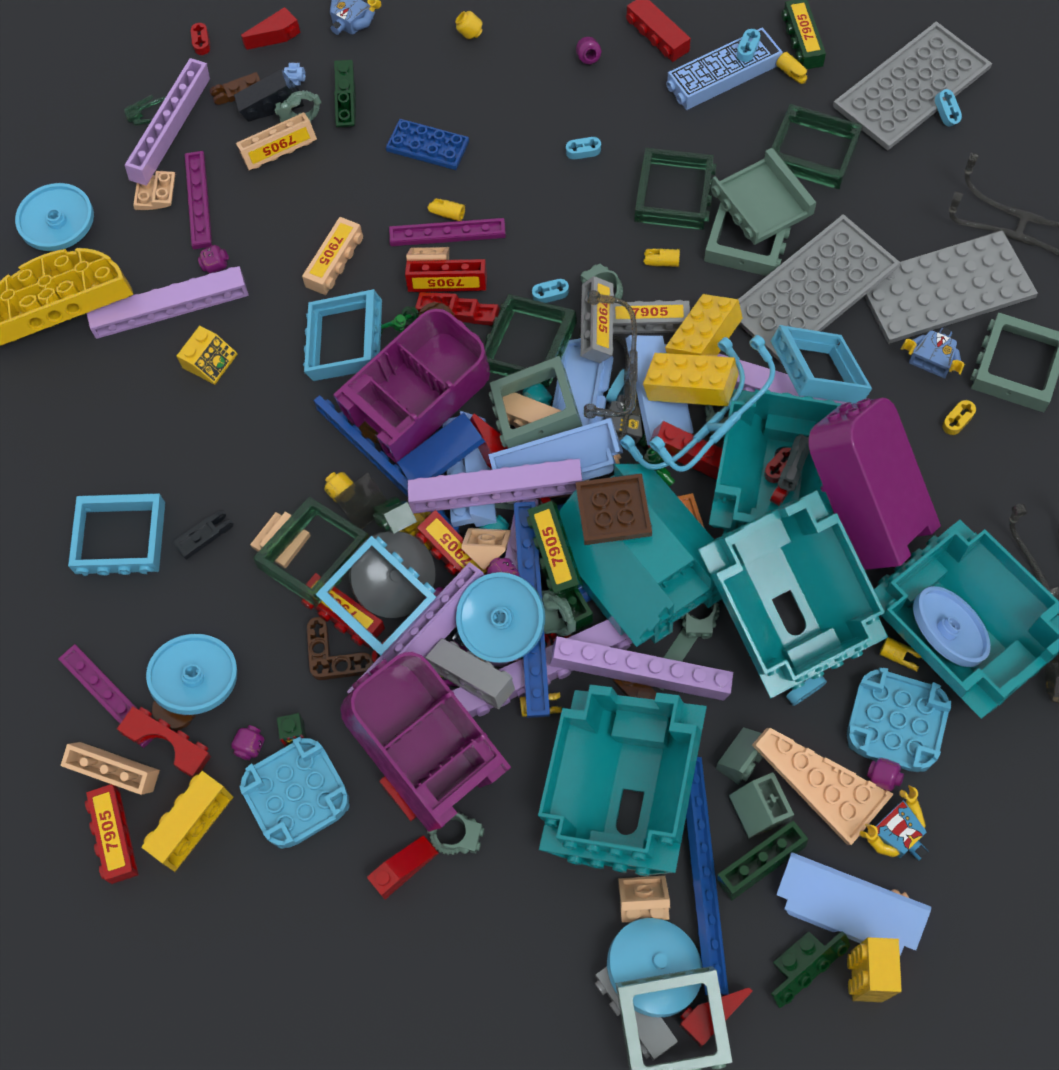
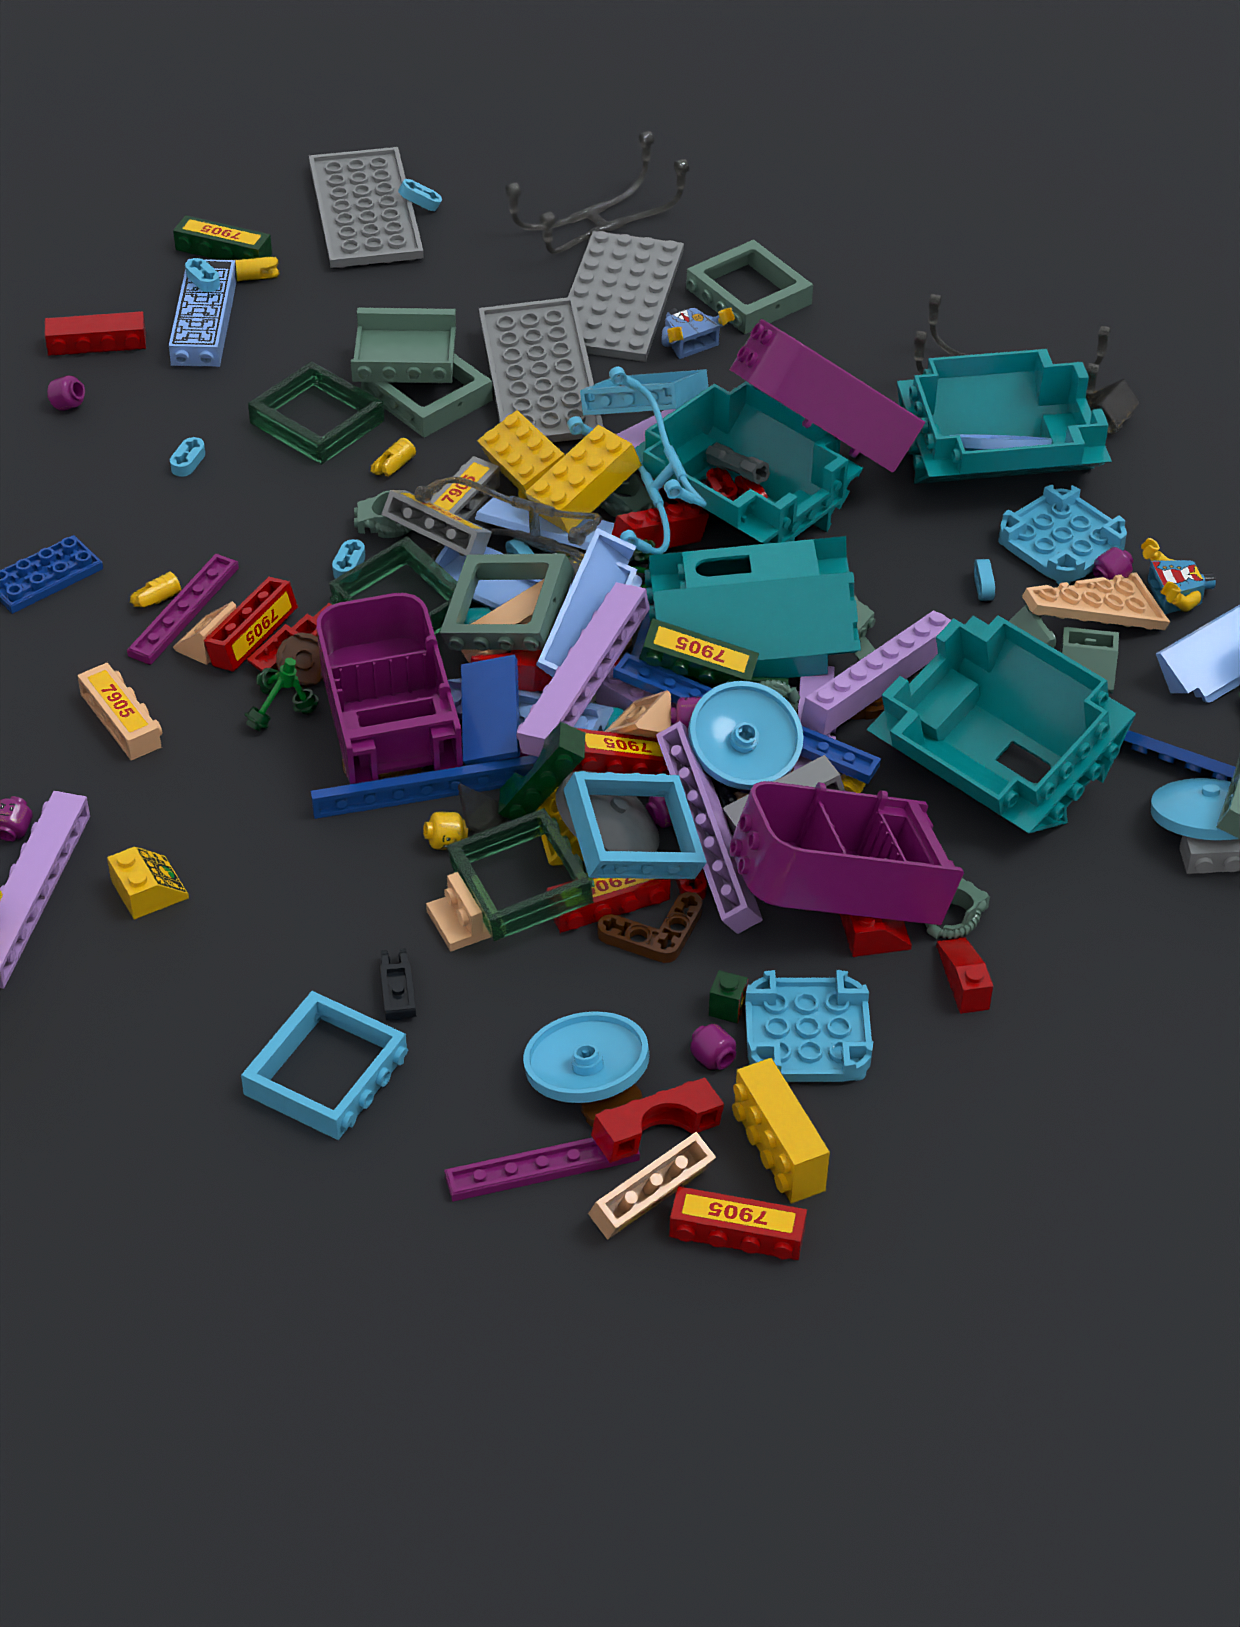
camera: 65 degrees left, 20 degrees down
(335, 305) = (265, 699): medium azure window -> none
(613, 509) = (708, 568): reddish brown plate -> none
(644, 898) = (1130, 789): light nougat bracket -> none
(762, 860) = (1147, 685): dark green brick -> none
(813, 558) = (895, 498): teal panel -> none
(826, 123) = (355, 275): clear green window -> none
(896, 652) = (992, 503): yellow hinge -> none

